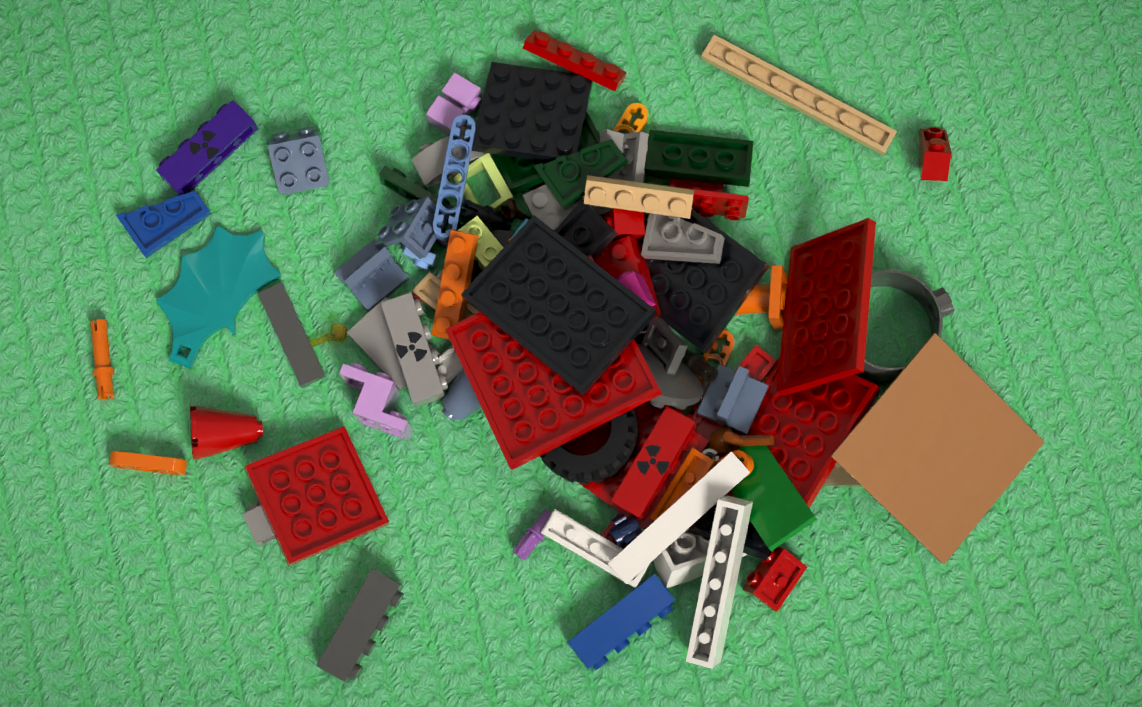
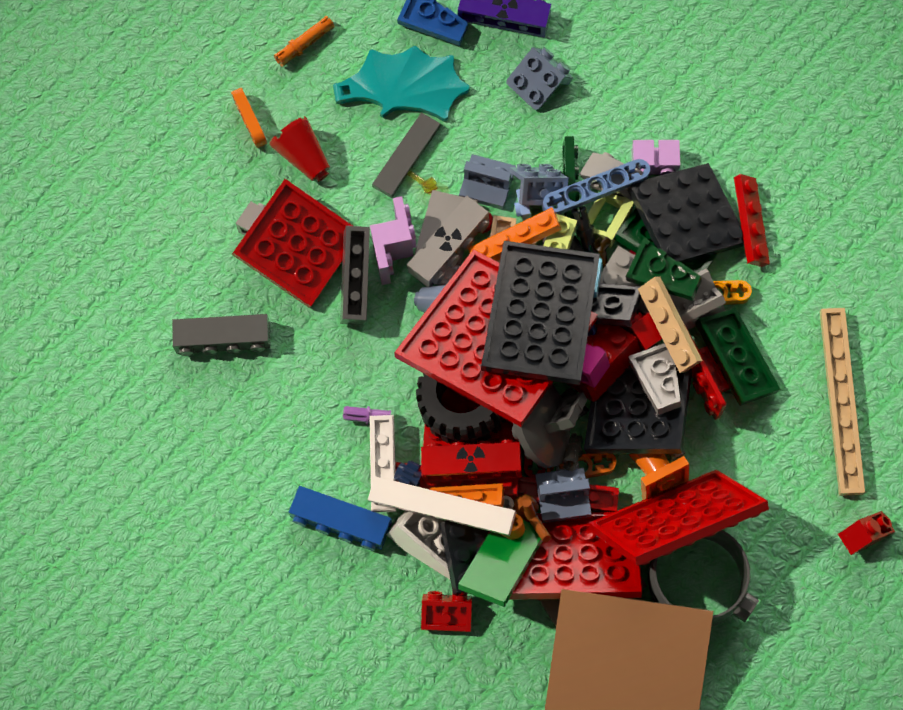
camera: 55 degrees right, 5 degrees down
(388, 459) = (355, 275): none -> dark grey brick
(719, 581) = (412, 566): white brick -> none

